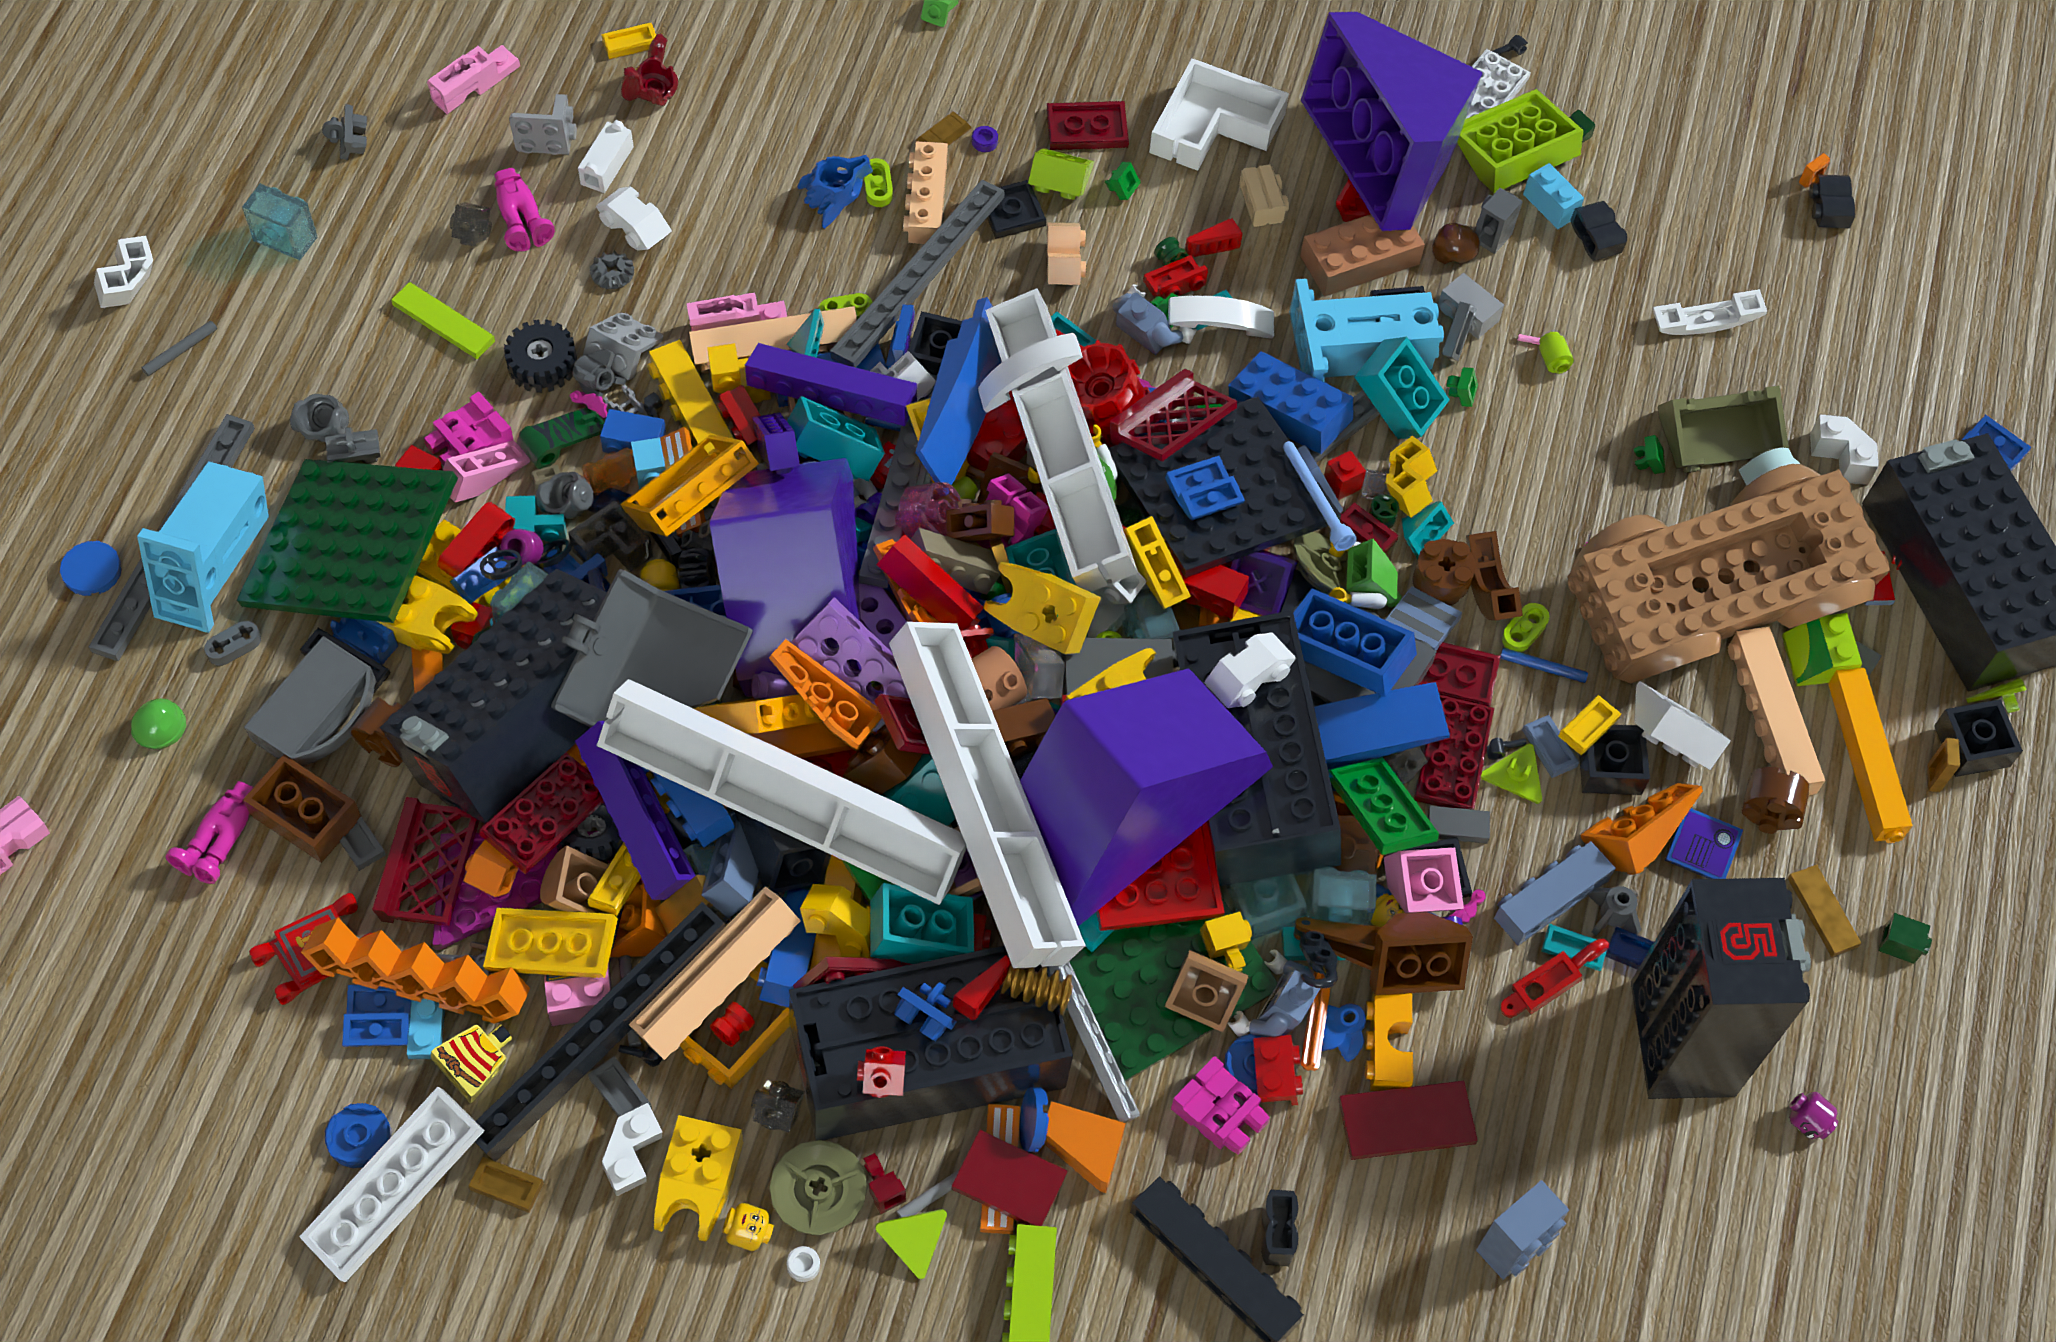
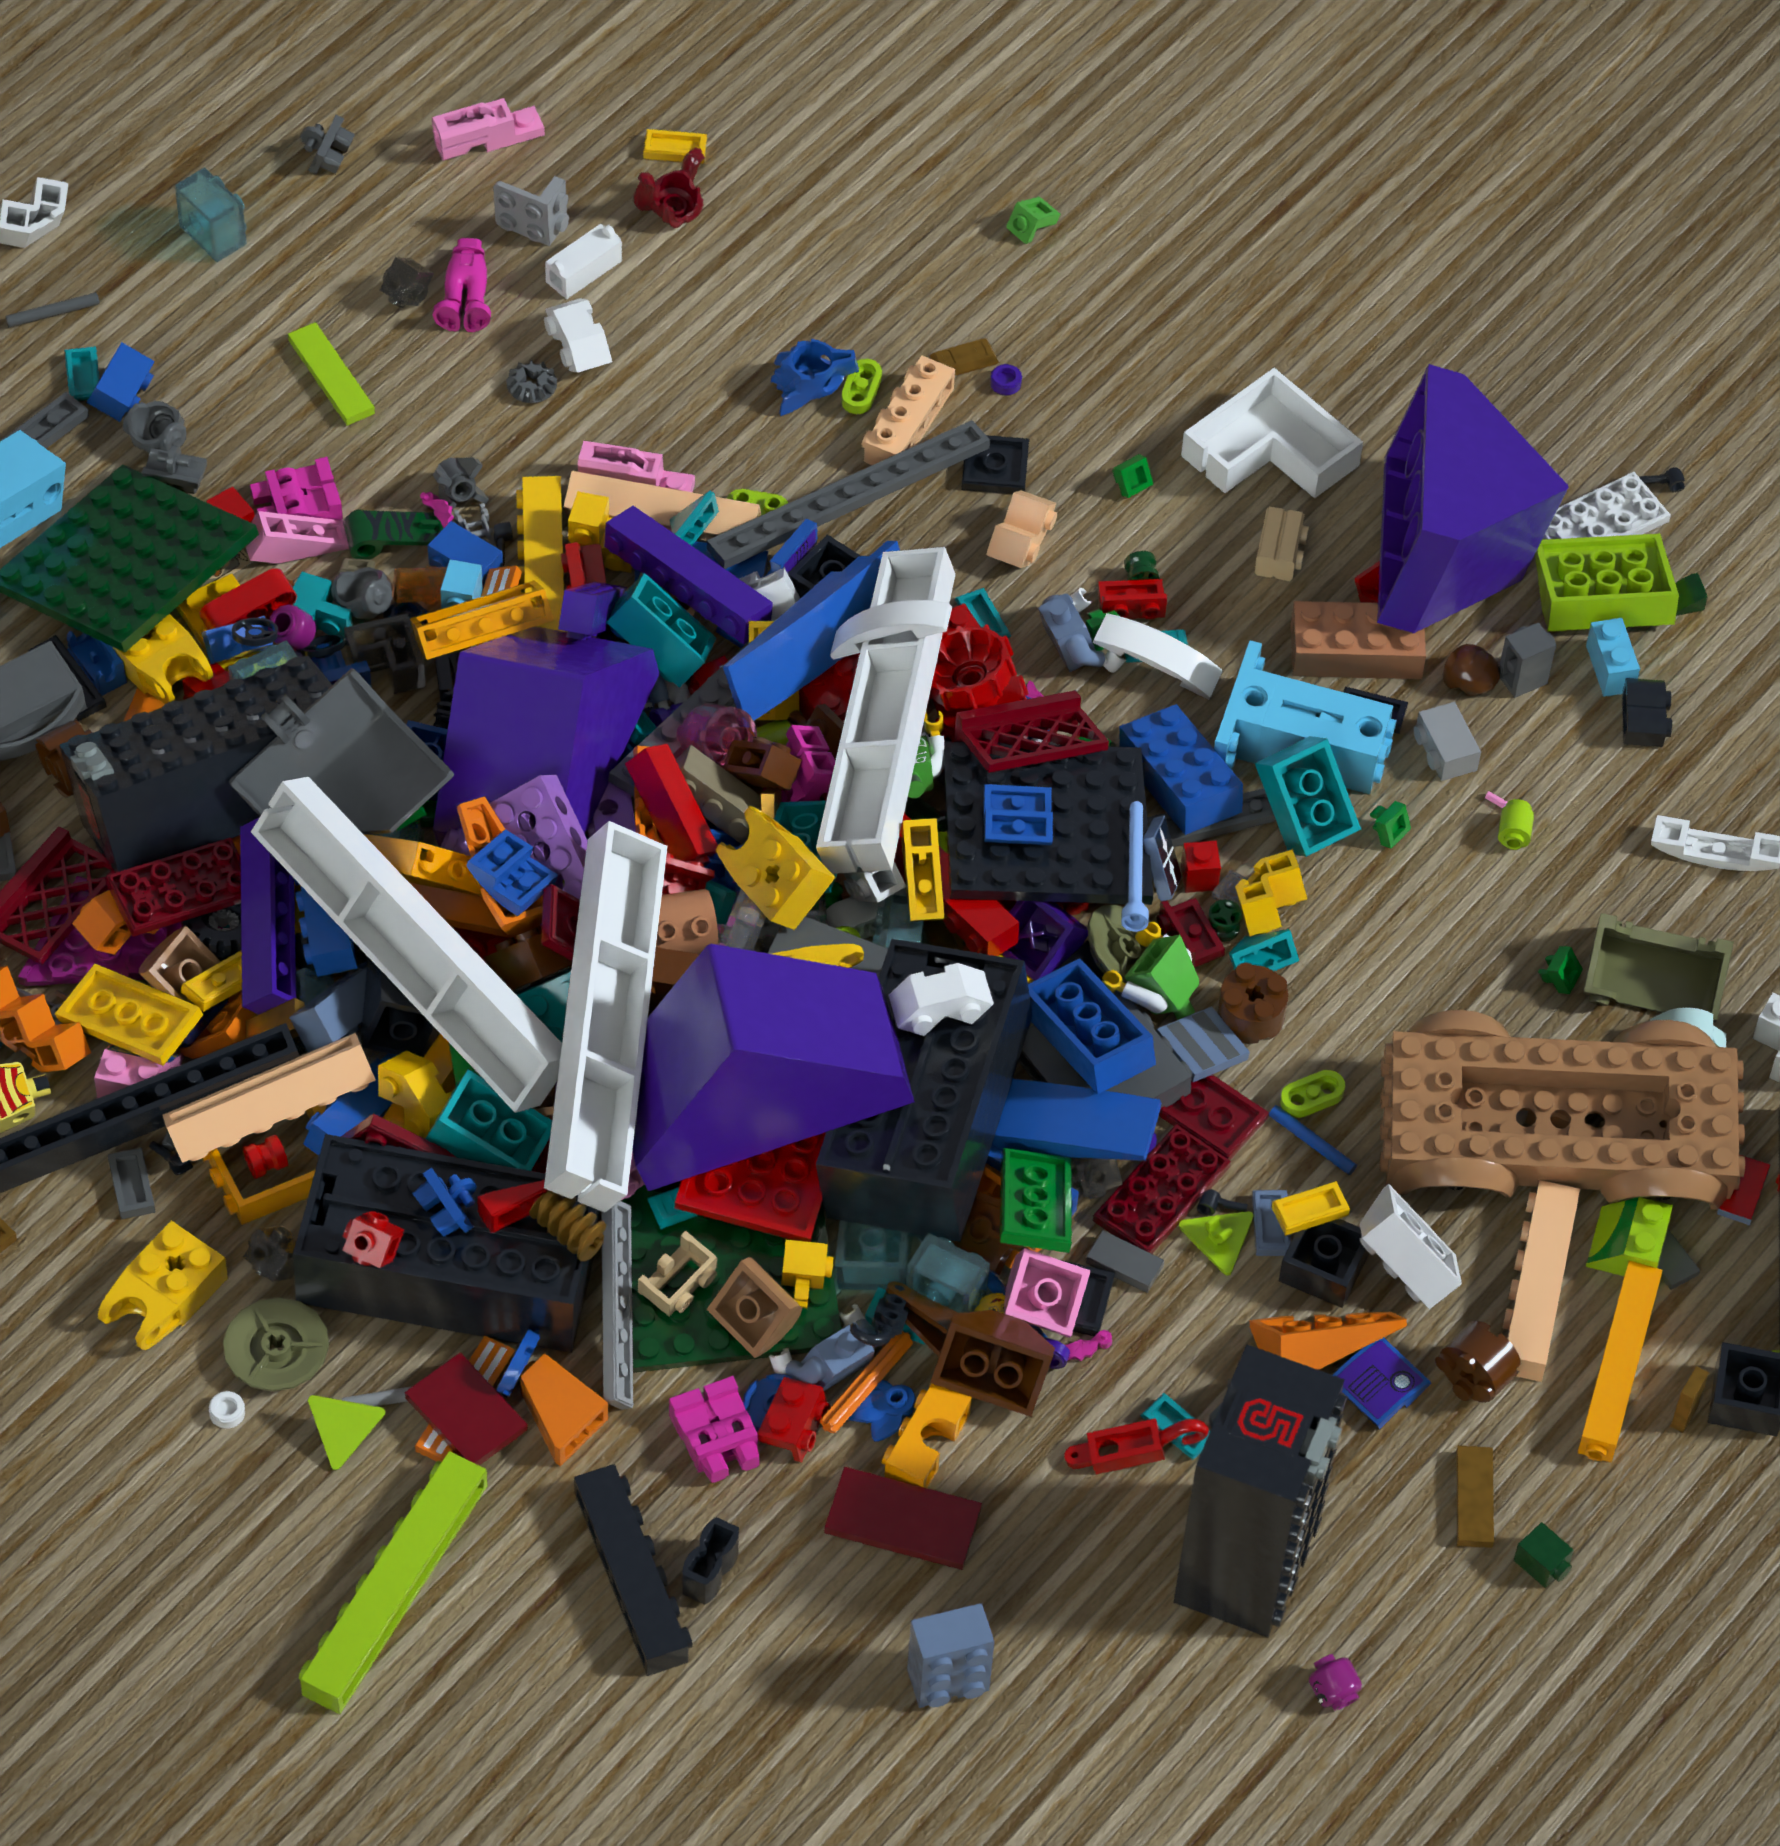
camera: 25 degrees right, 5 degrees down
(232, 393) = (82, 372): none -> teal tile
(271, 389) = (121, 381): none -> blue brick
(540, 371) = (410, 460): black bush -> none
(624, 338) = (503, 456): light grey bracket -> none
(630, 1134) = (115, 1222): white brick -> none
(661, 575) = (418, 706): yellow head -> none
(747, 1227) = (188, 1352): yellow head -> none
(841, 698) = (510, 872): none -> blue slope
(885, 1189) = (340, 1370): dark red piece -> none
(1060, 173) = (1066, 443): lime slope -> none
(1087, 125) = (1128, 403): dark red tile -> none
(1124, 961) = (668, 1268): none -> tan window
(1216, 239) = (1198, 572): red slope -> none
(1459, 331) = (1412, 761): dark grey tile -> none
(1489, 586) = (1299, 1024): reddish brown arch -> none
(1554, 892) = (1179, 1364): sand blue brick -> none

